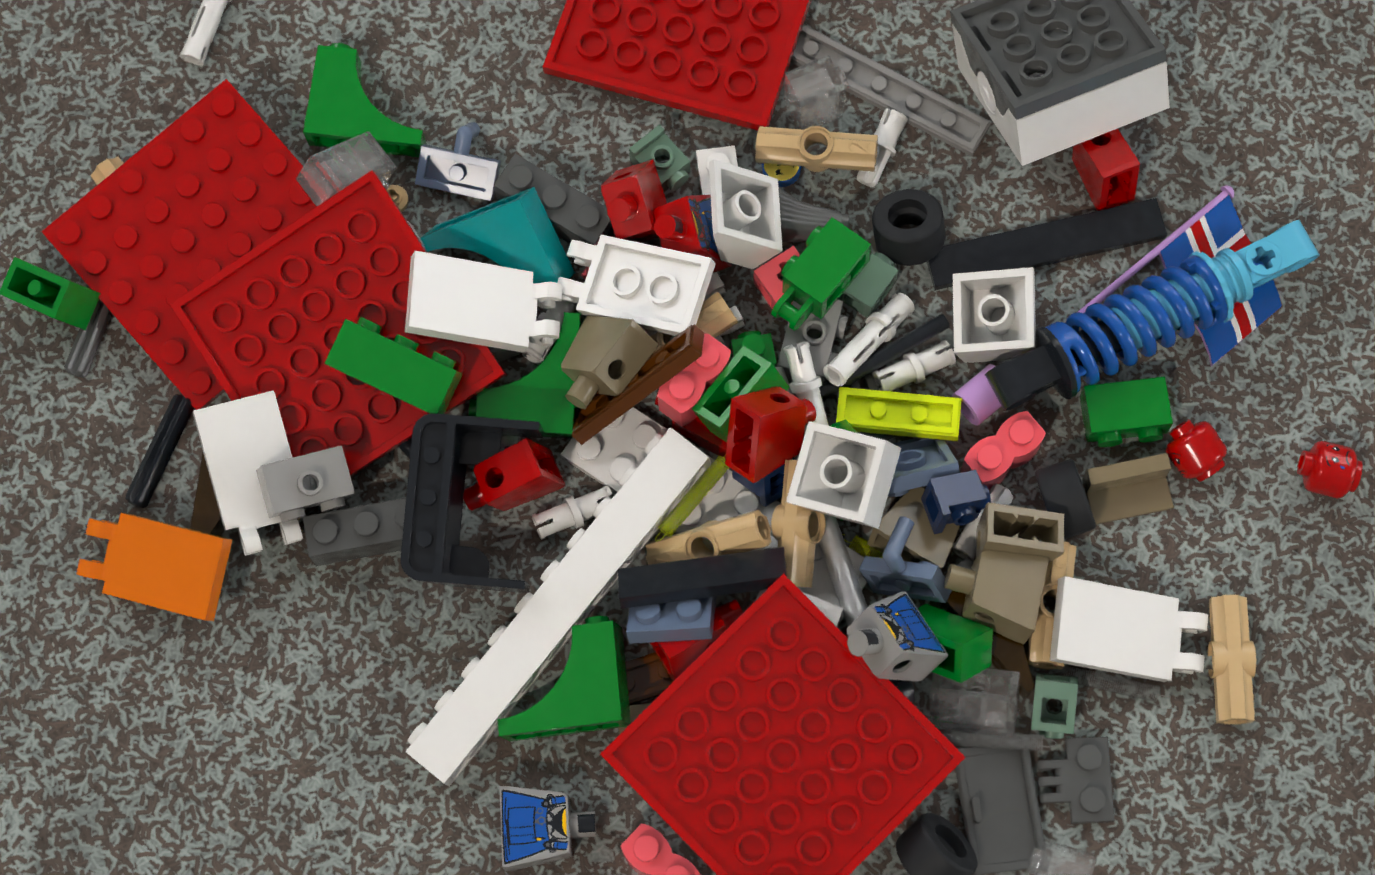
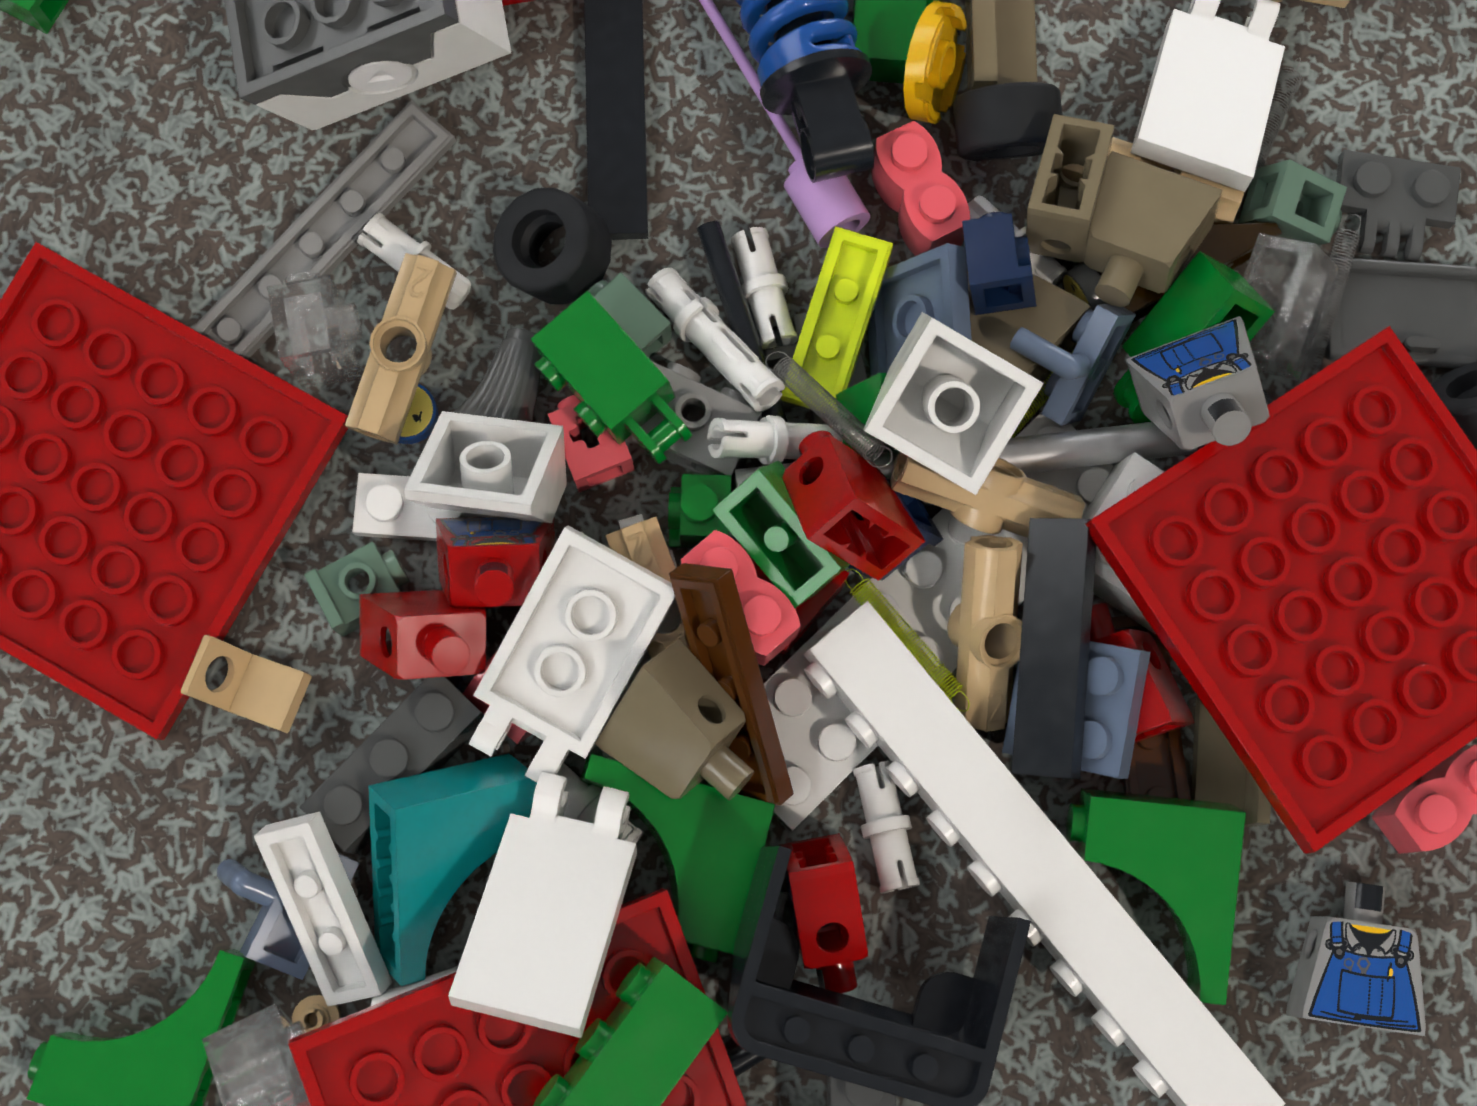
camera: 85 degrees left, 5 degrees up
(457, 182) = (323, 909): none -> white plate
(586, 116) = (253, 685): none -> tan bracket
(834, 406) = (835, 416): none -> light grey piece
(994, 314) = (720, 146): white slope -> none
(1093, 440) = (934, 62): none -> yellow tile

